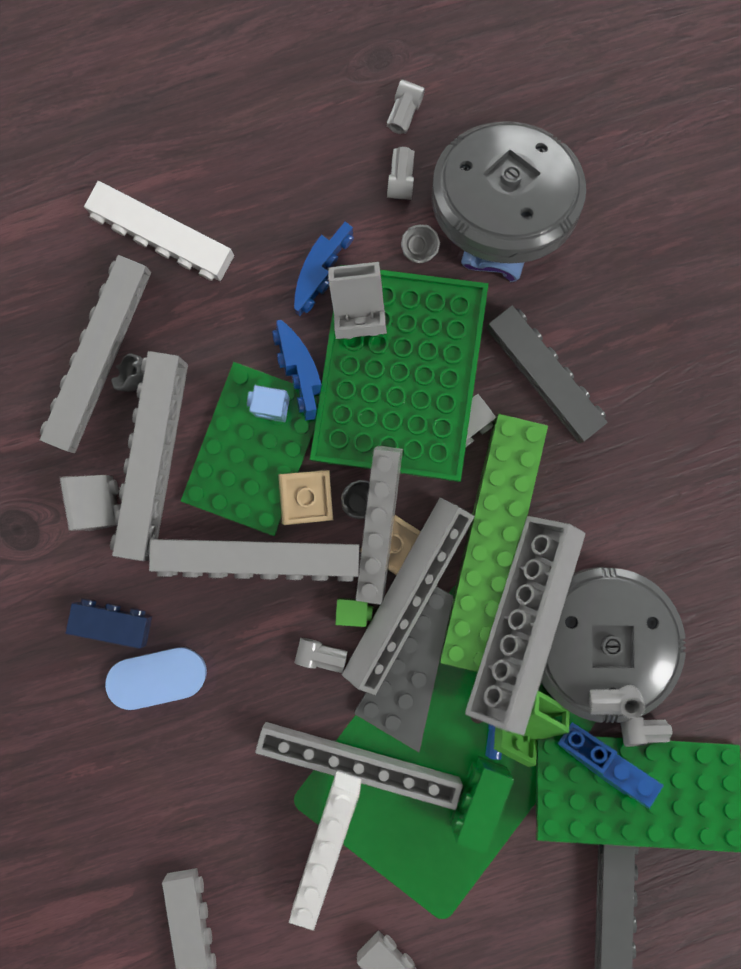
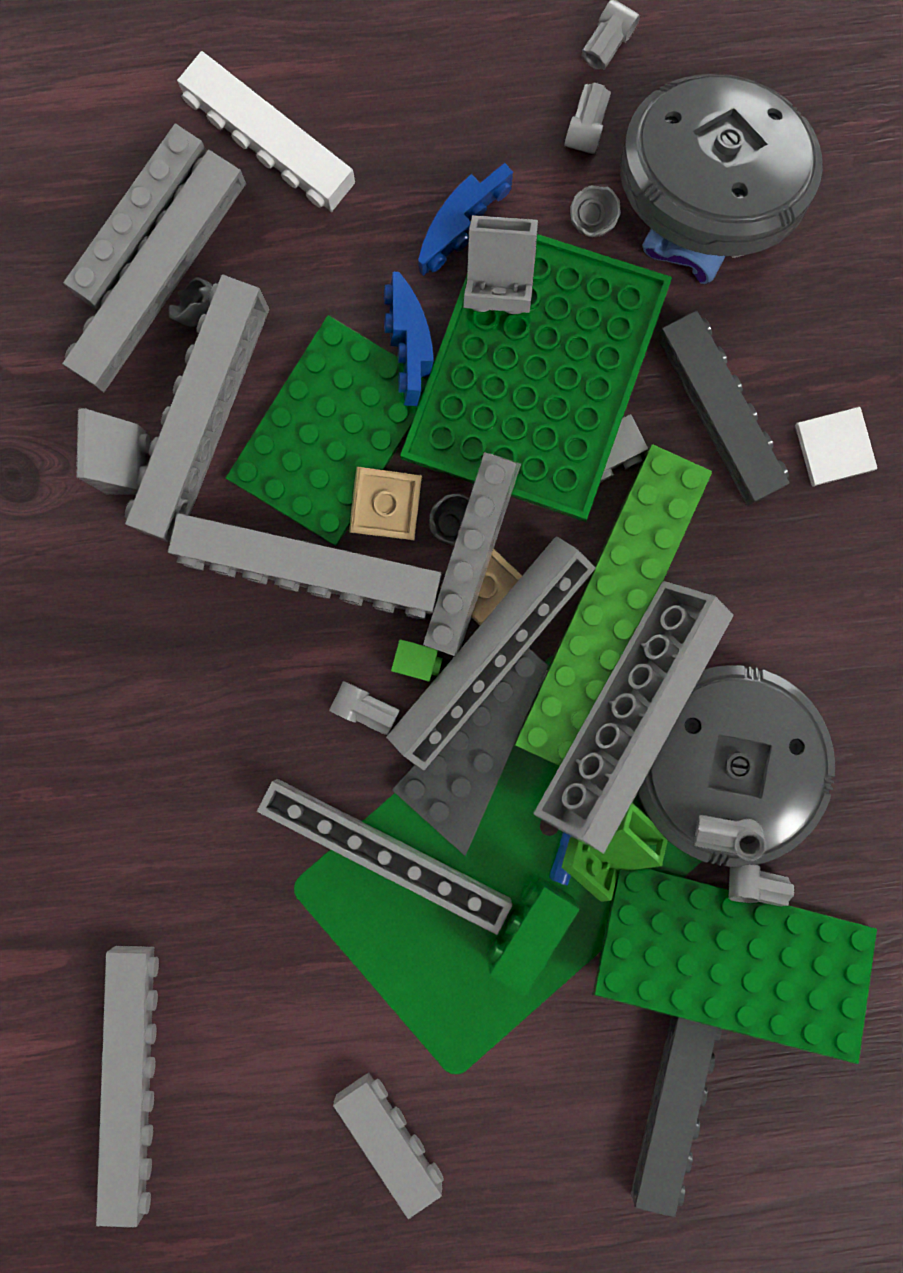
camera: 15 degrees right, 0 degrees up
(72, 316) = (134, 216): none -> light grey brick
(109, 623) = (104, 614): dark blue brick -> none
(155, 678) = (149, 696): light blue tile -> none
(268, 403) = (362, 372): light blue brick -> none
(325, 850) = (321, 953): white brick -> none
(610, 766) = (705, 919): blue slope -> none
(637, 385) = (836, 446): none -> white tile

